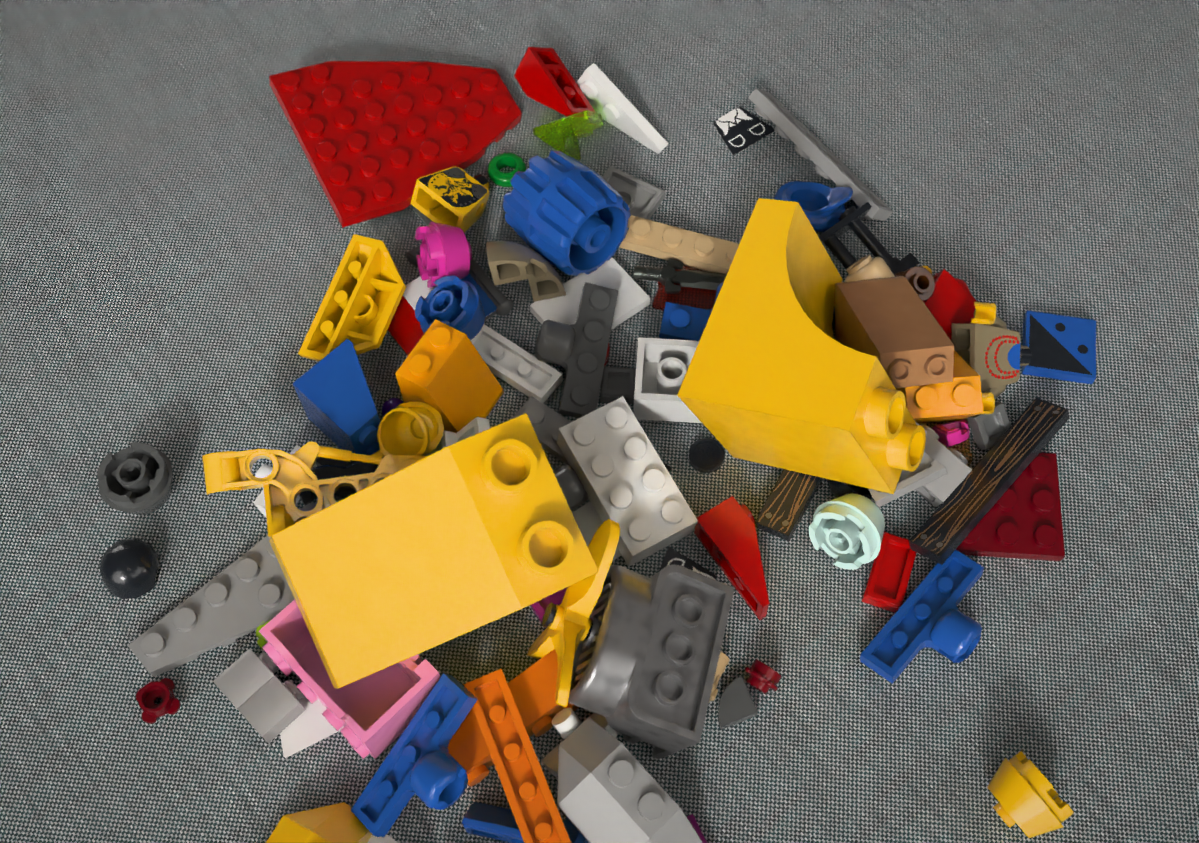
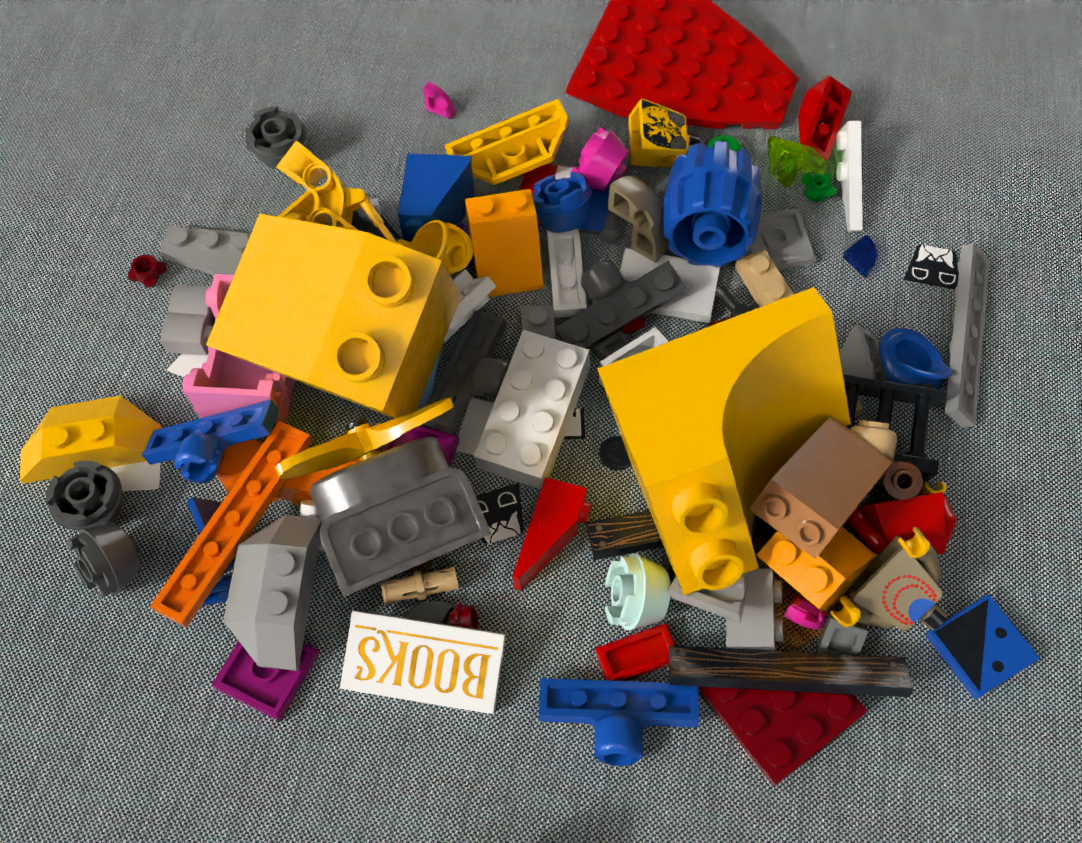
camera: 50 degrees right, 0 degrees up
(129, 568) = (220, 185): black hair -> none
(234, 326) = (438, 101): none -> dark pink tile
(603, 139) = (818, 186): none -> green plate
(691, 162) = (862, 255): none -> clear blue tile
(774, 734) = (423, 661): none -> white tile

